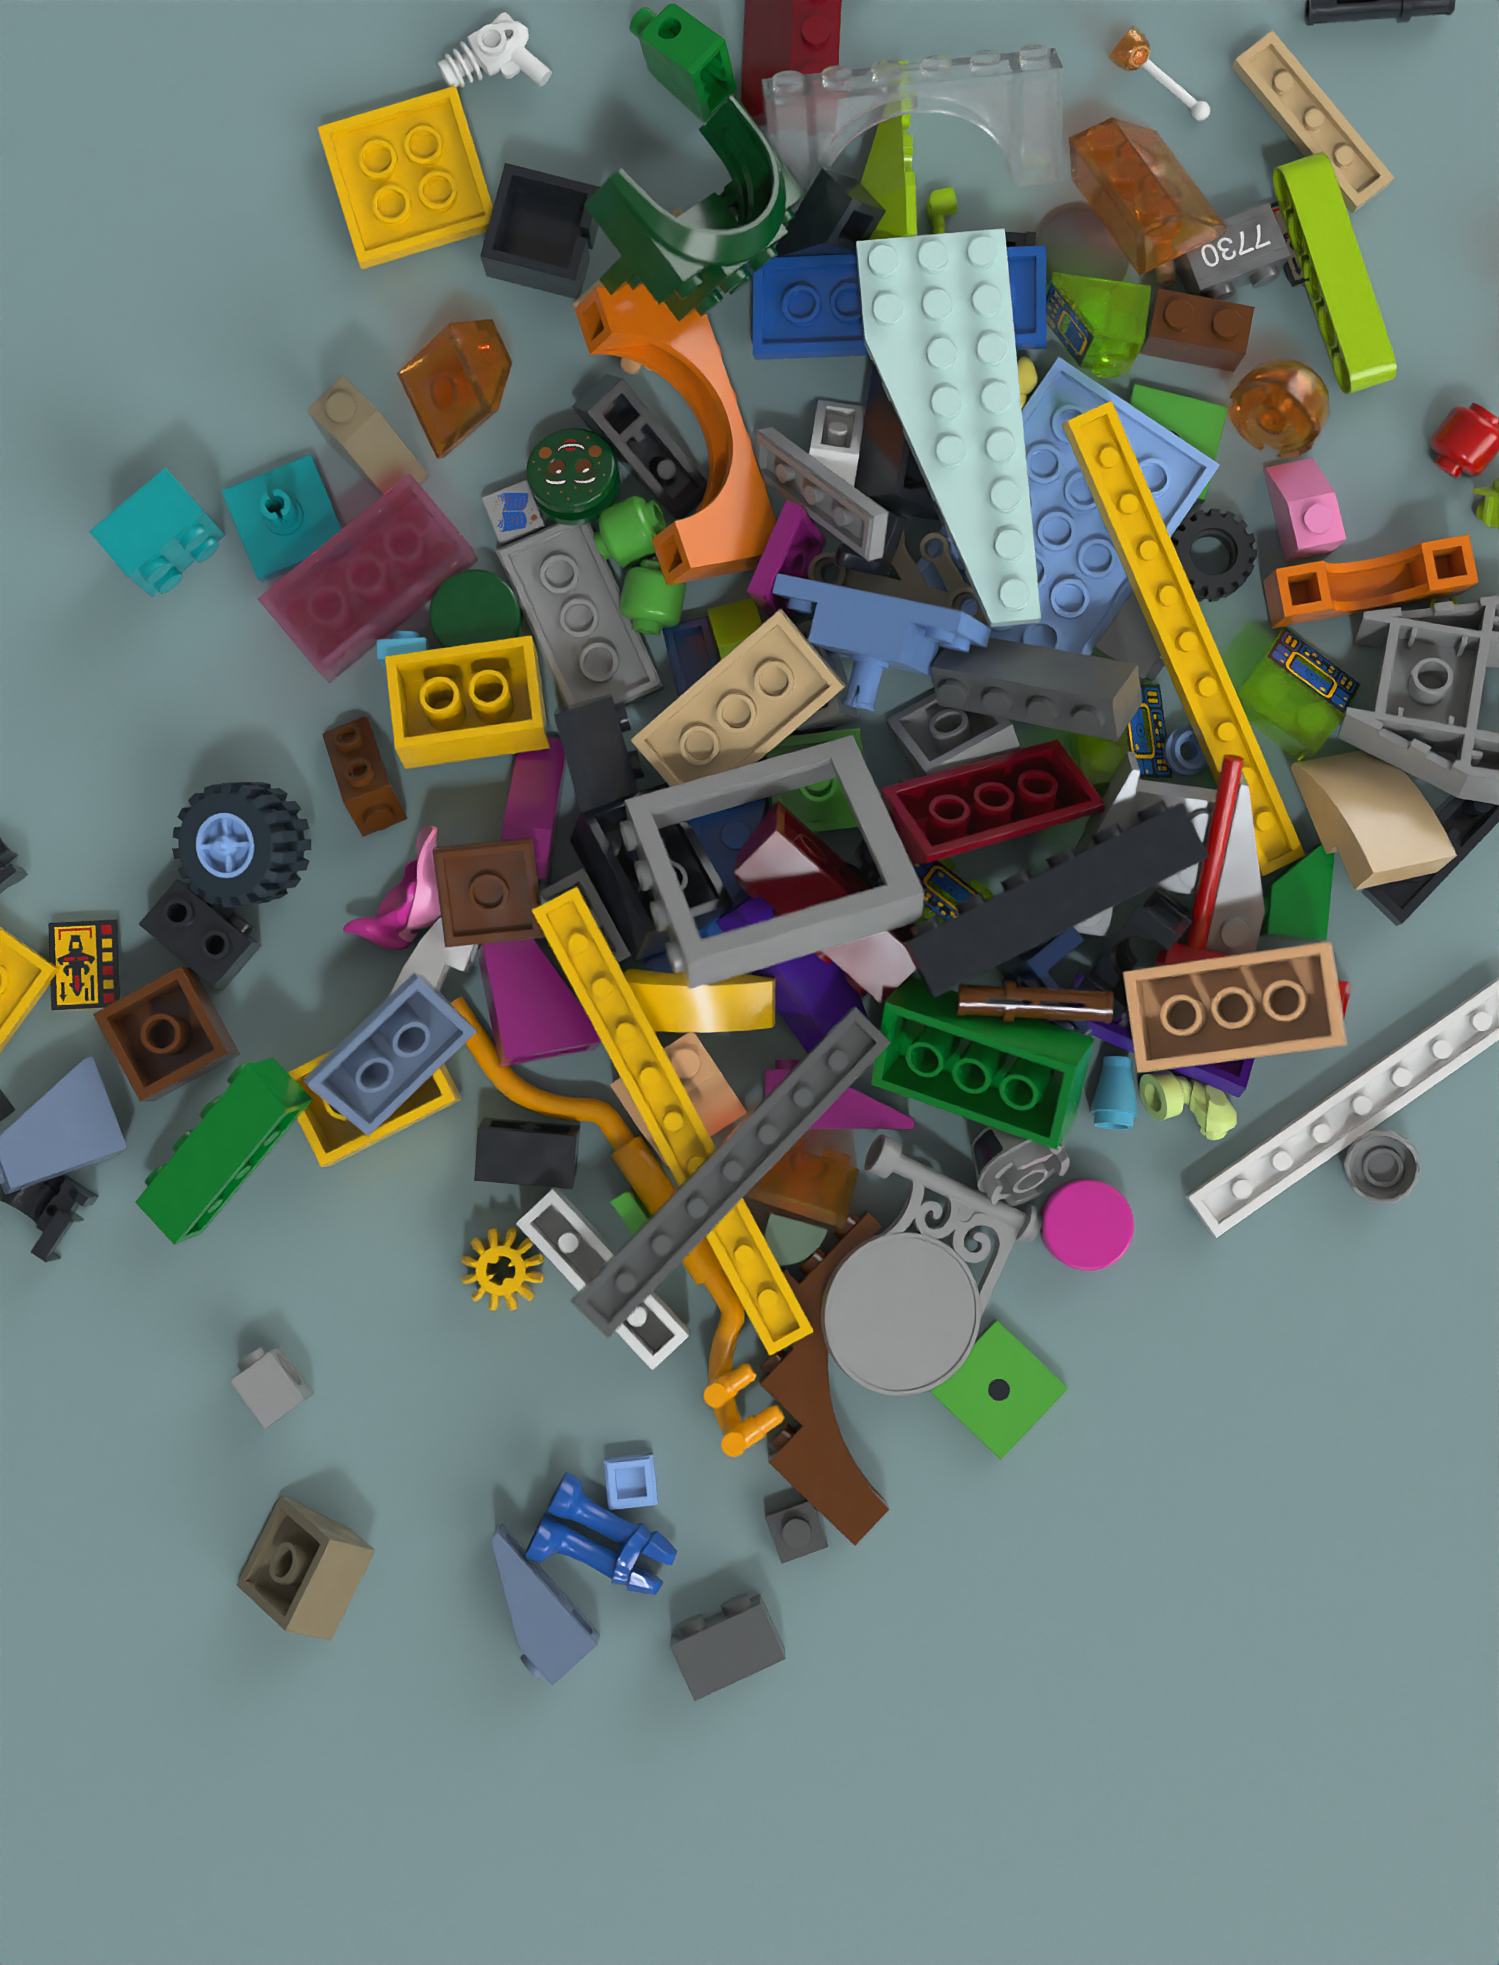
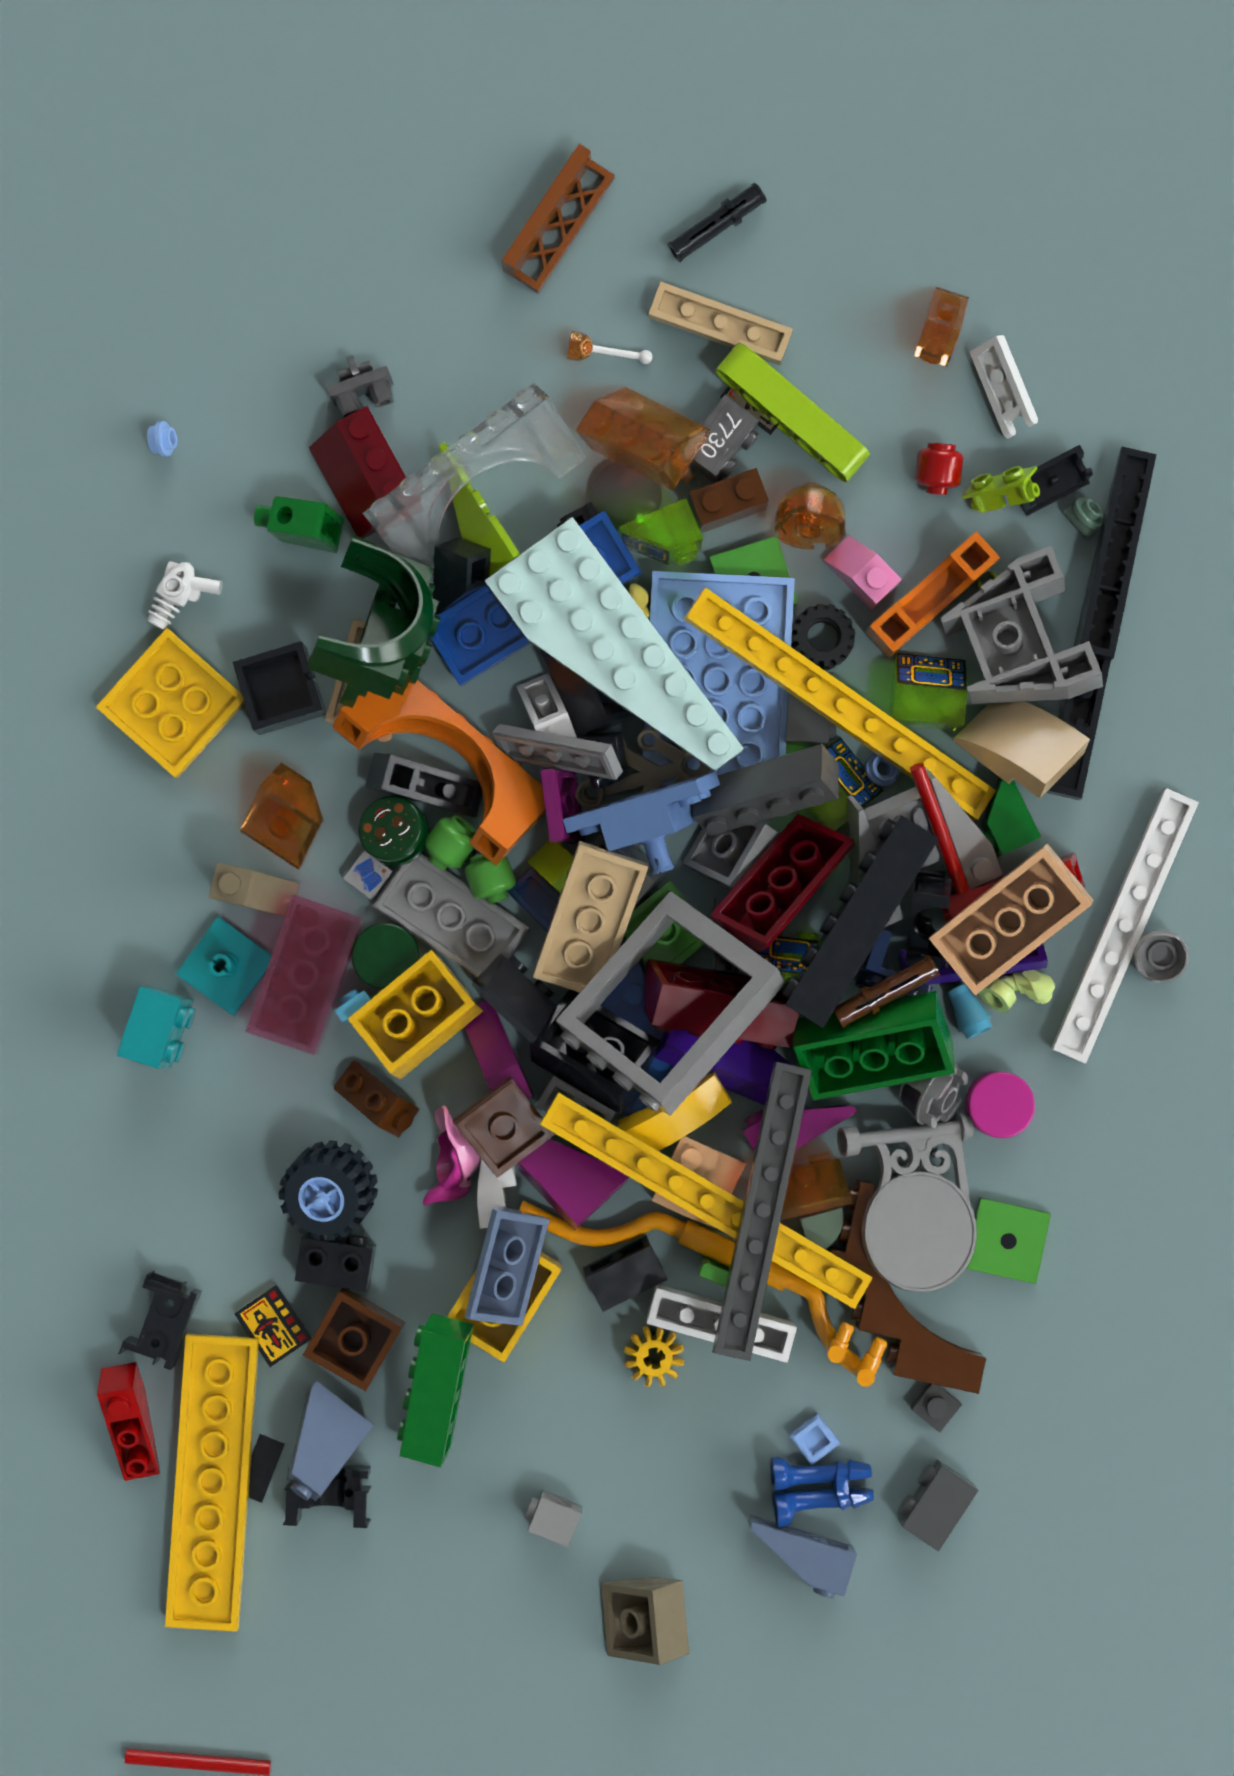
camera: 30 degrees left, 0 degrees up
(941, 204) = (517, 517): lime hand -> none

